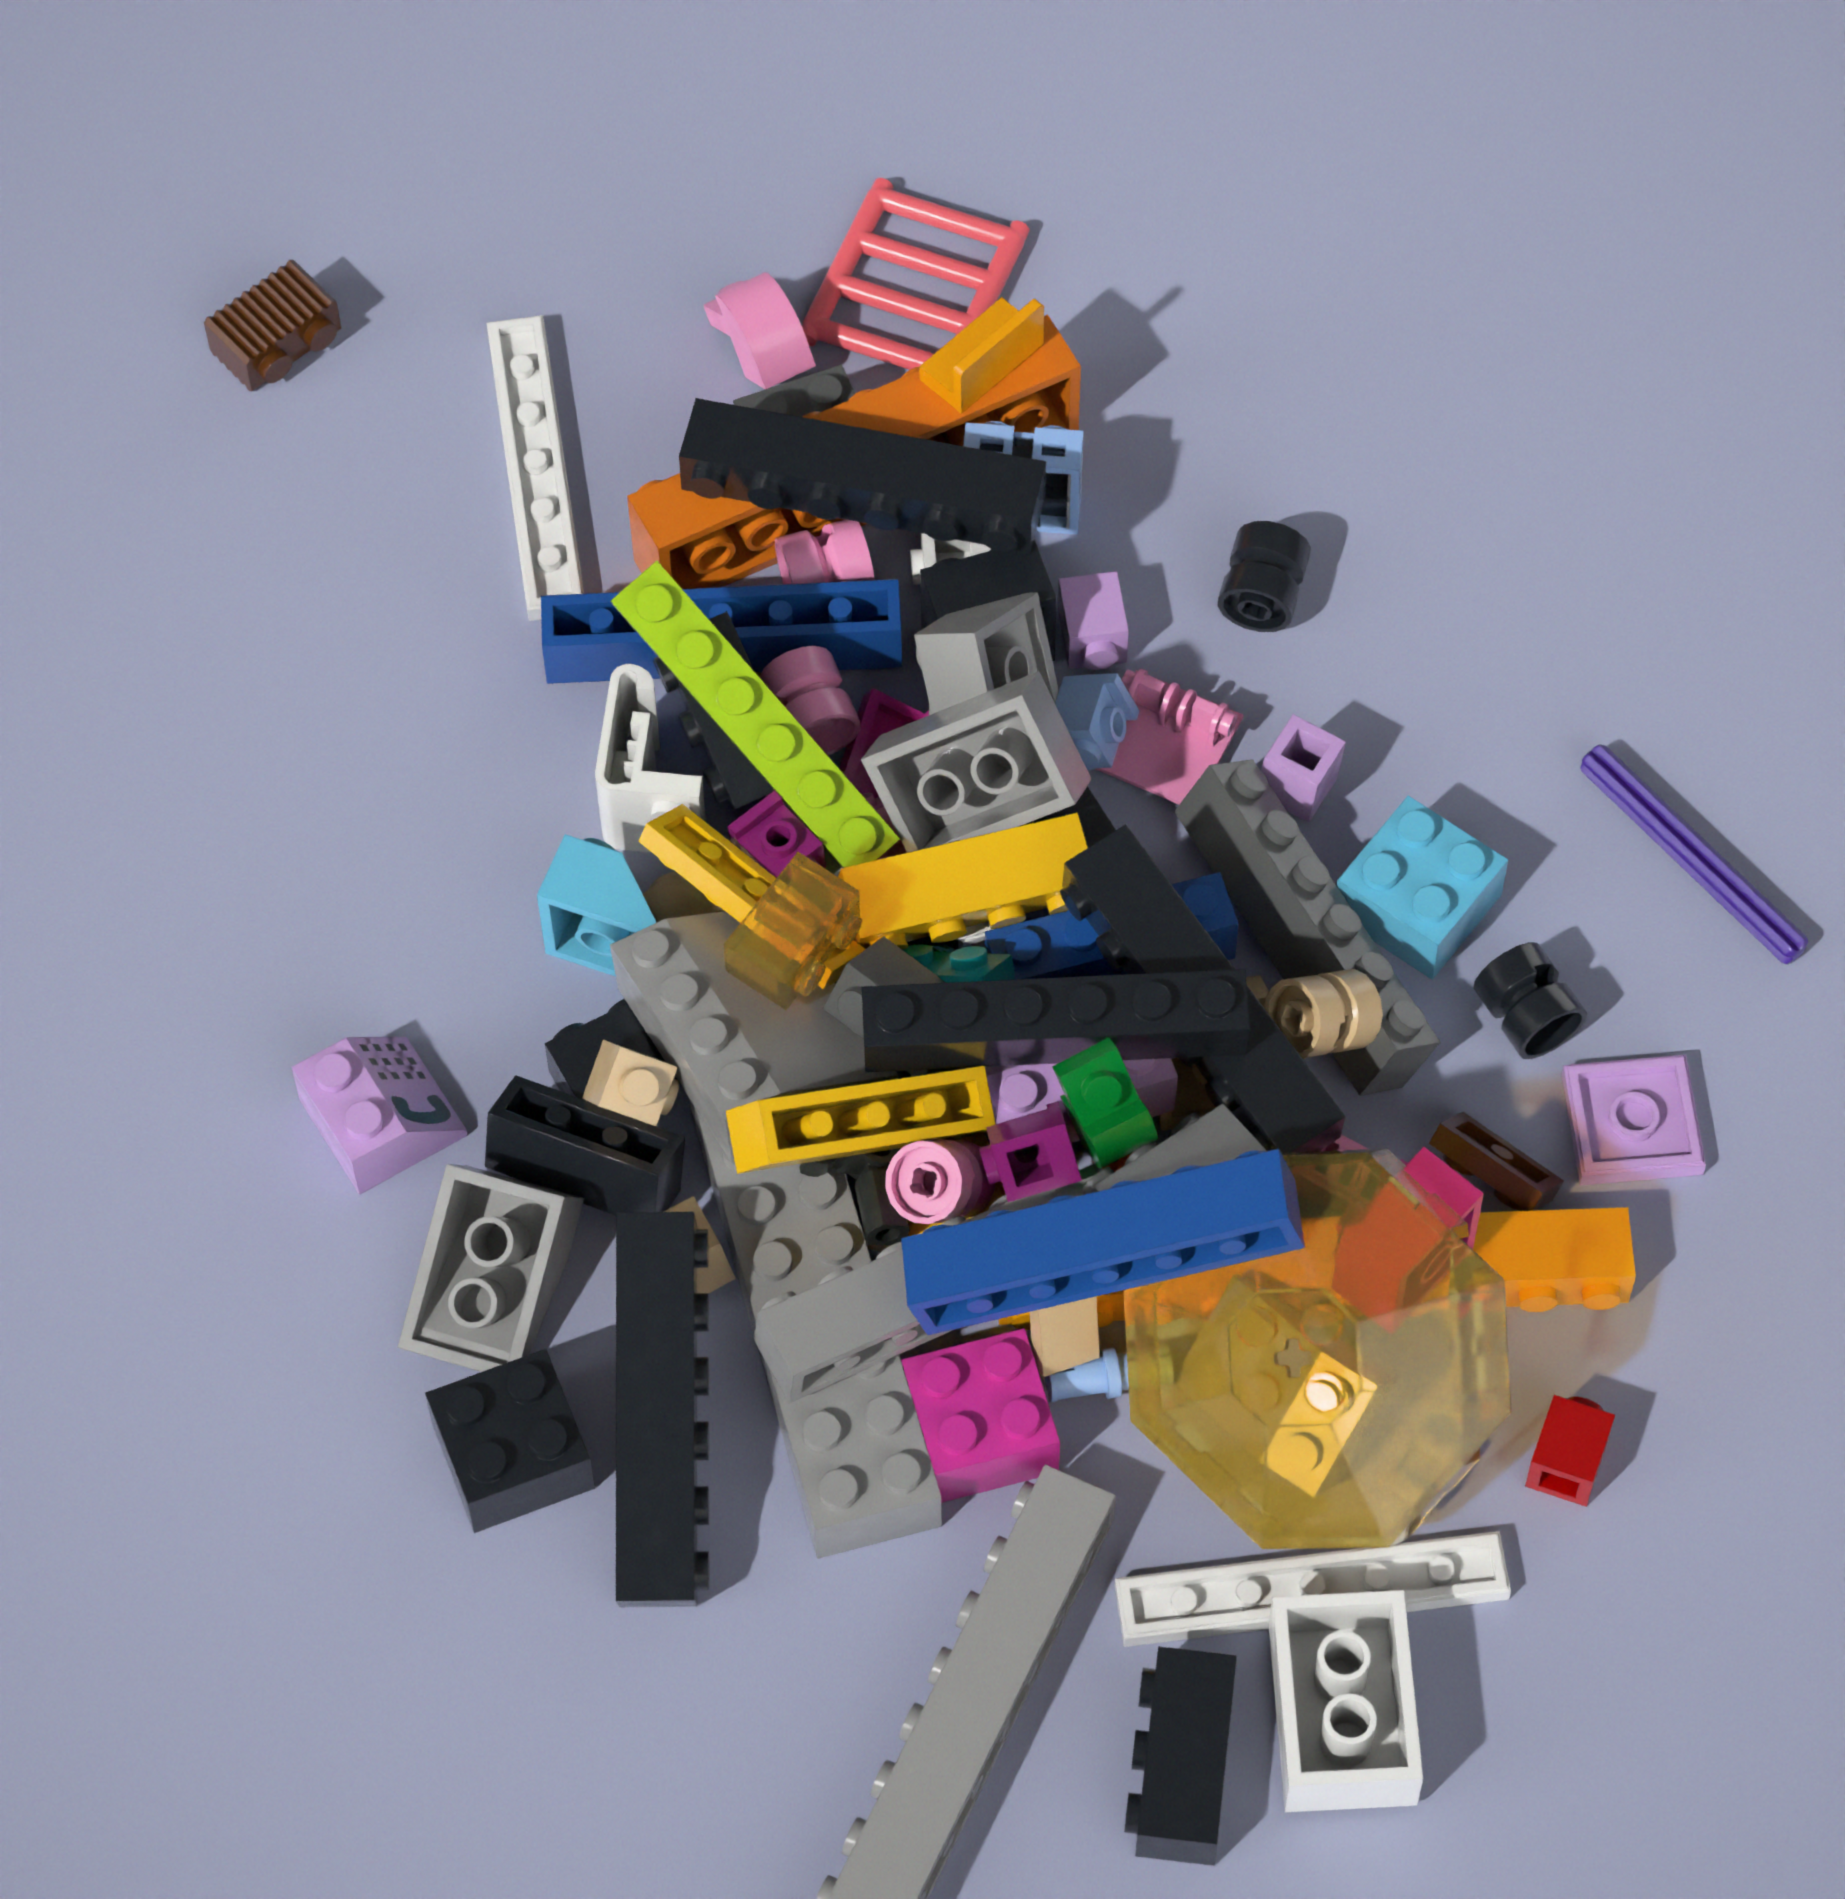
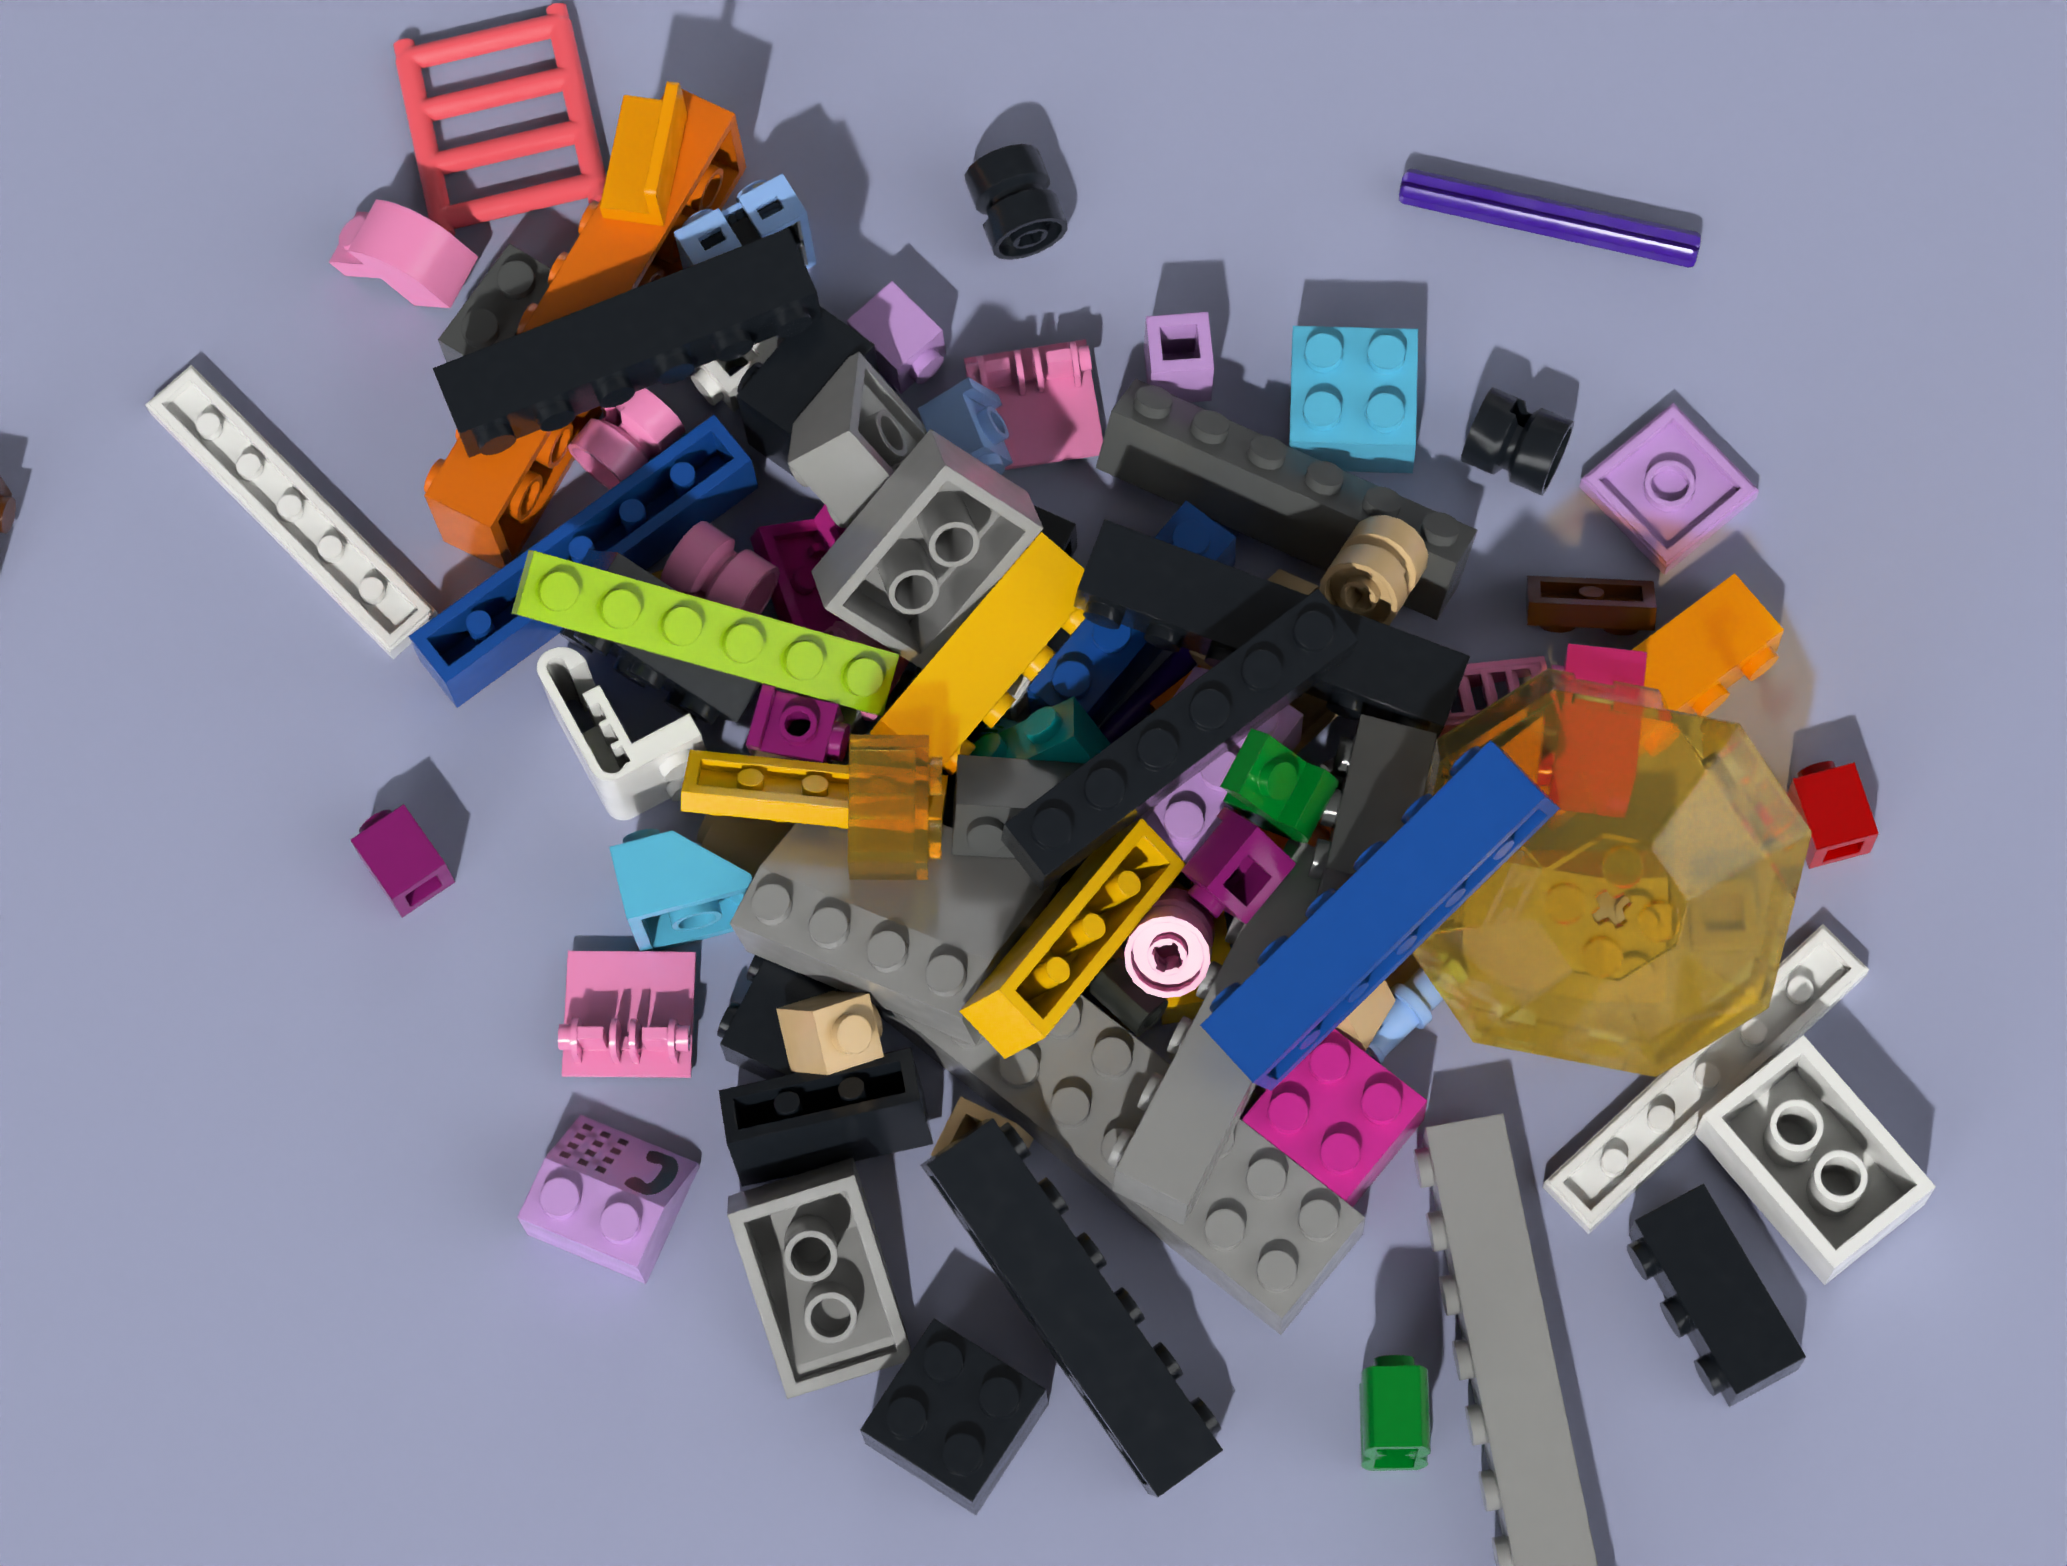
camera: 30 degrees left, 10 degrees up
(416, 763) = (401, 859): none -> magenta brick
(498, 986) = (628, 1014): none -> bright pink hinge
(848, 1664) = (1394, 1414): none -> green brick

